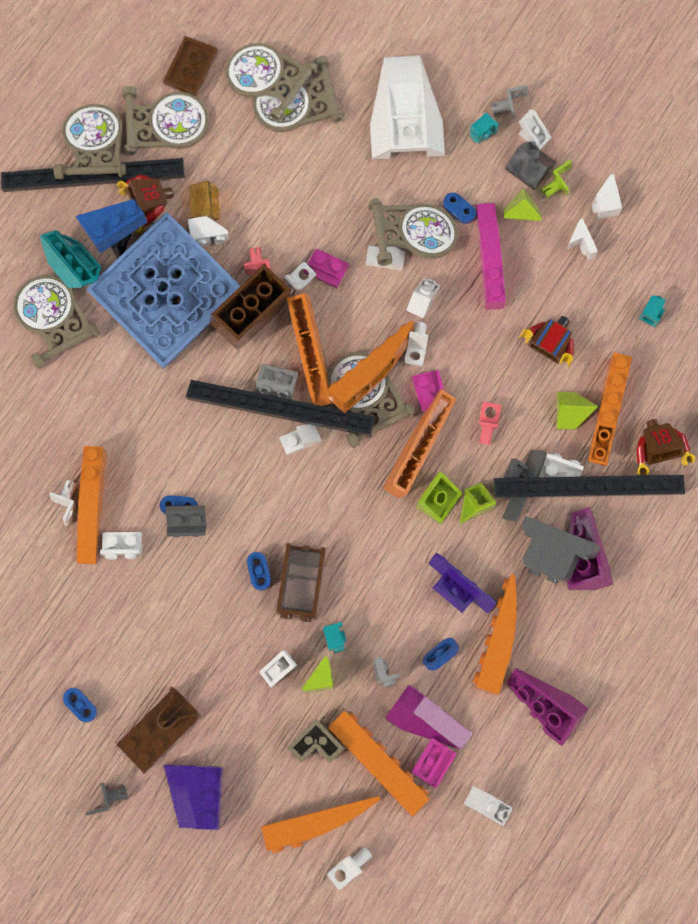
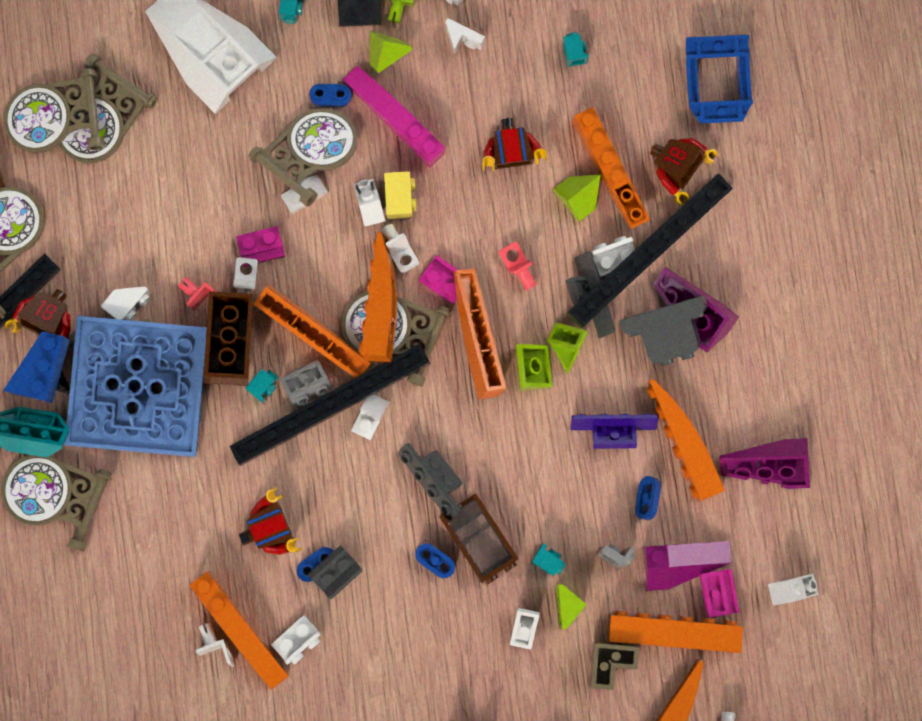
camera: 45 degrees left, 5 degrees up
(169, 454) = (269, 527): none -> torso
(204, 200) = (98, 276): clear yellow bracket -> none
(247, 358) = (262, 385): none -> teal brick
(307, 515) = (435, 478): none -> dark grey bracket
(447, 309) = (398, 195): none -> light yellow brick

